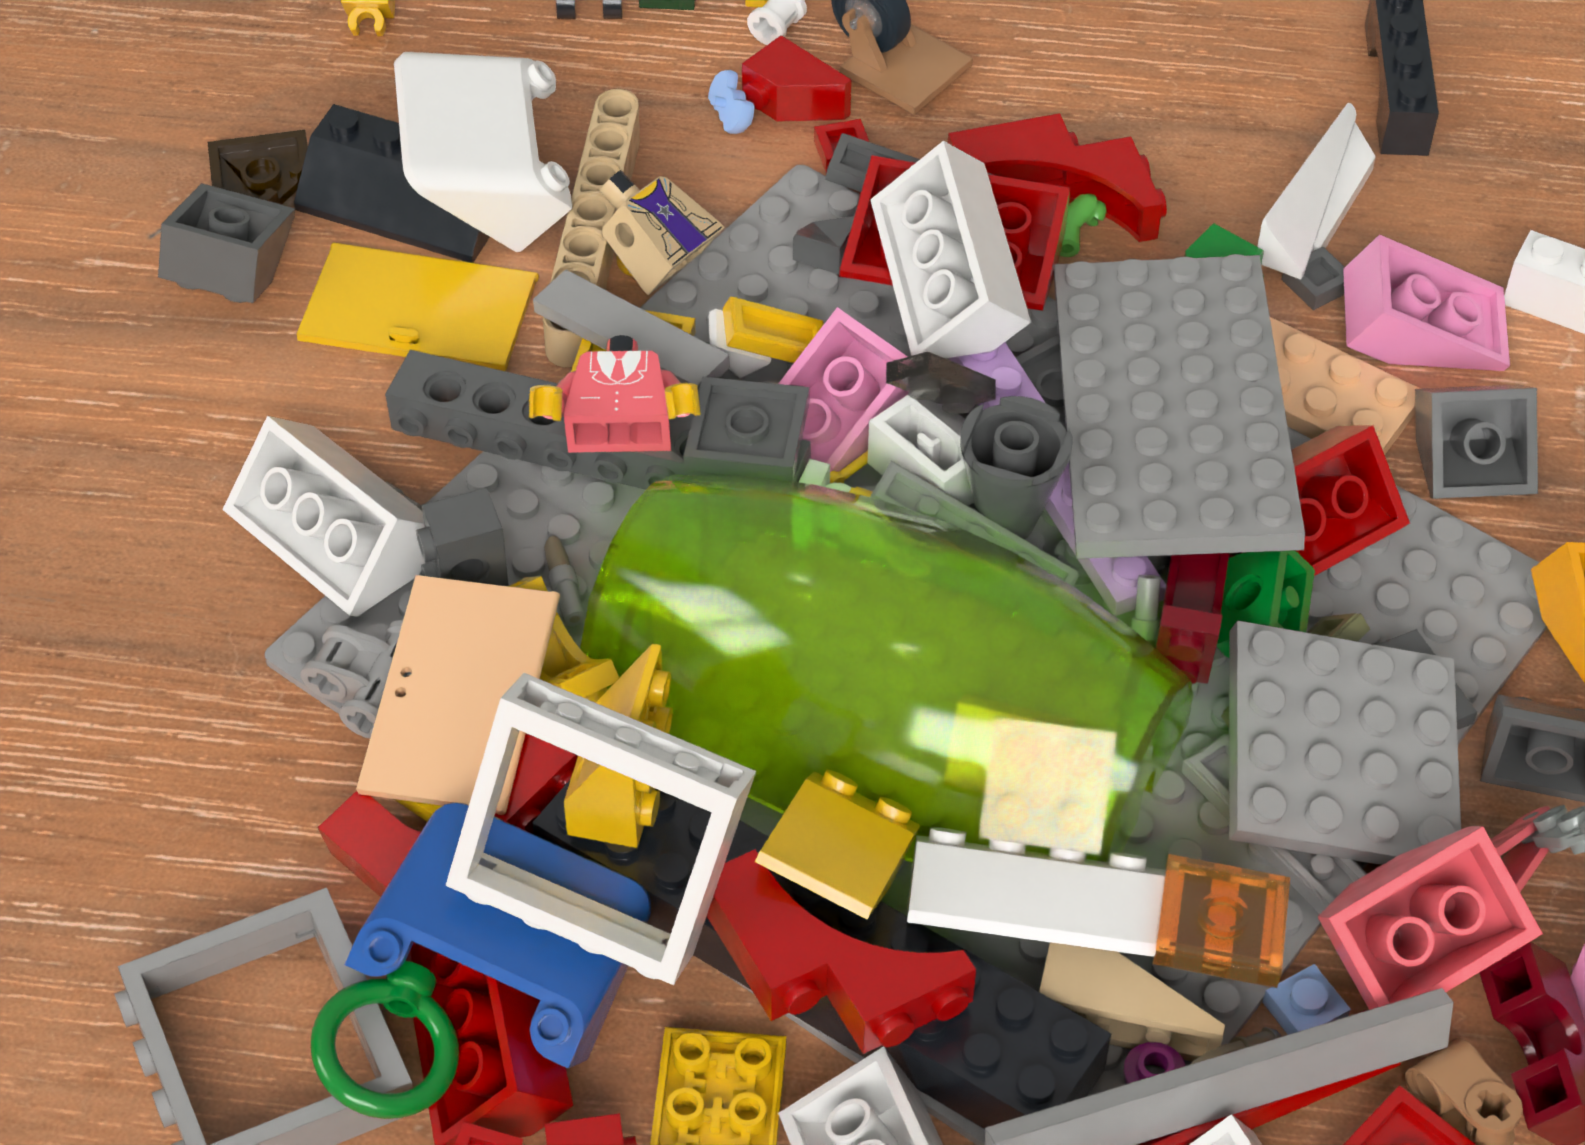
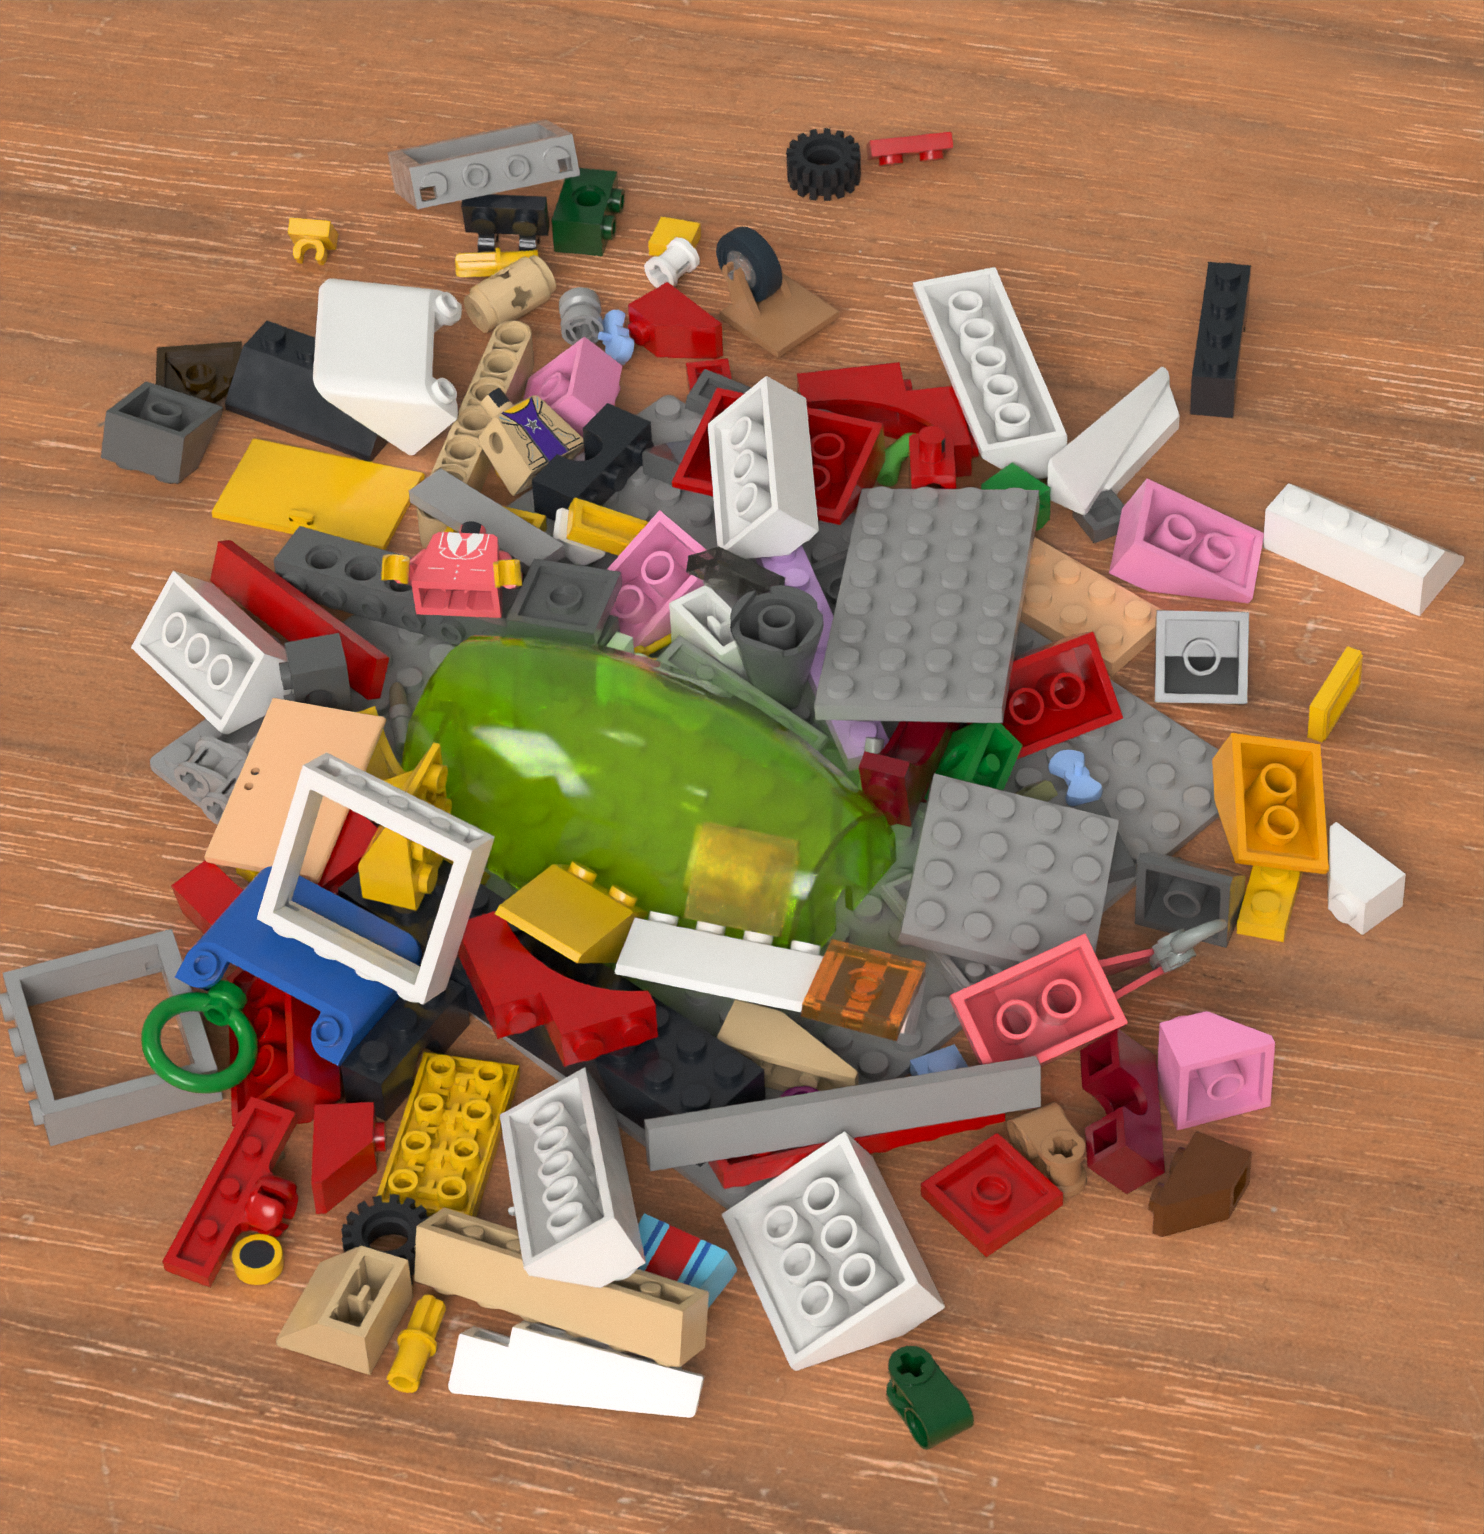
camera: 10 degrees right, 5 degrees down
(418, 458) = (295, 614): none -> red tile
(581, 24) = (487, 263): none -> yellow axle
(596, 59) = (510, 293): none -> tan piece
(624, 1044) = (386, 1057): none -> black arch
(687, 80) = (580, 315): none -> light grey wheel
(702, 158) = (577, 383): none -> bright pink slope
(759, 232) = (612, 455): none -> black arch
(1125, 228) = (932, 458): none -> red torso
(1170, 118) = (992, 370): none -> white slope
(1386, 616) = (1071, 767): none -> light blue piece

